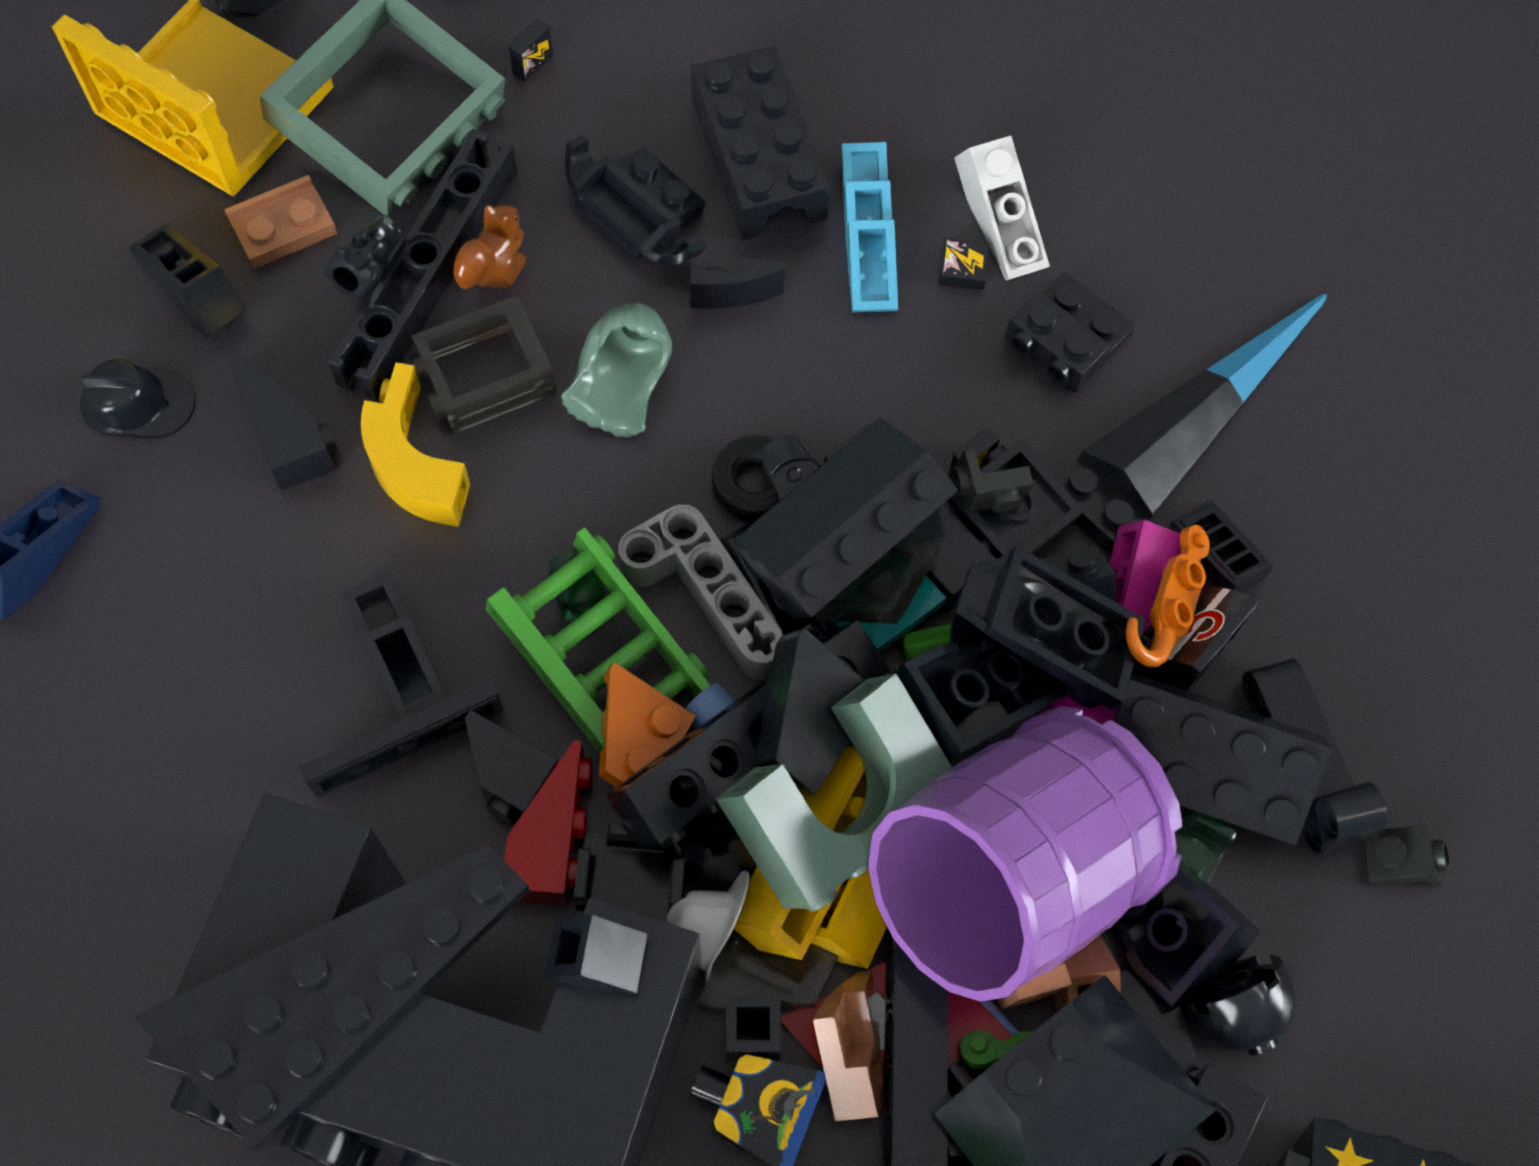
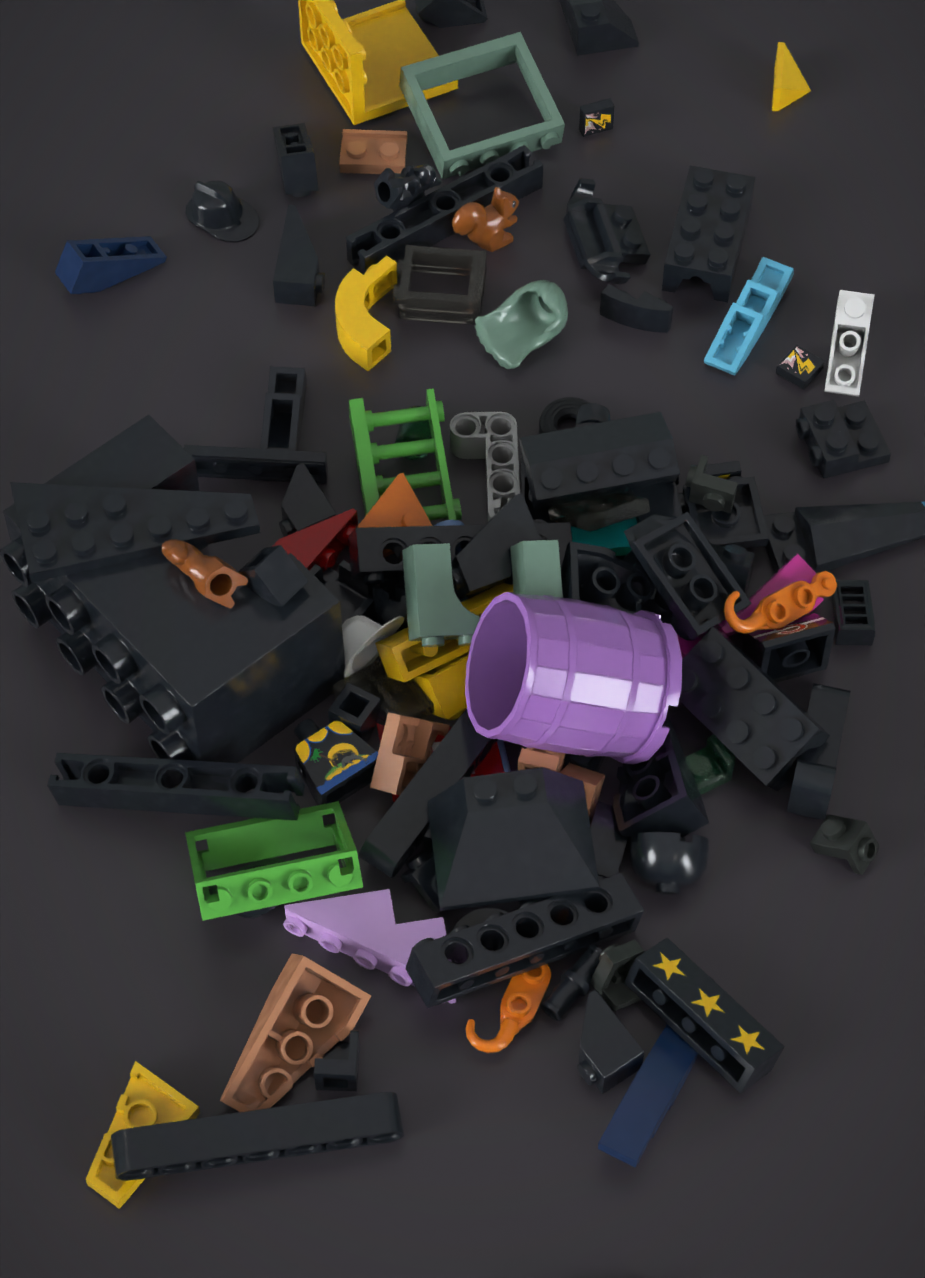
camera: 35 degrees right, 10 degrees down
(510, 999) = (209, 573): none -> dark orange animal

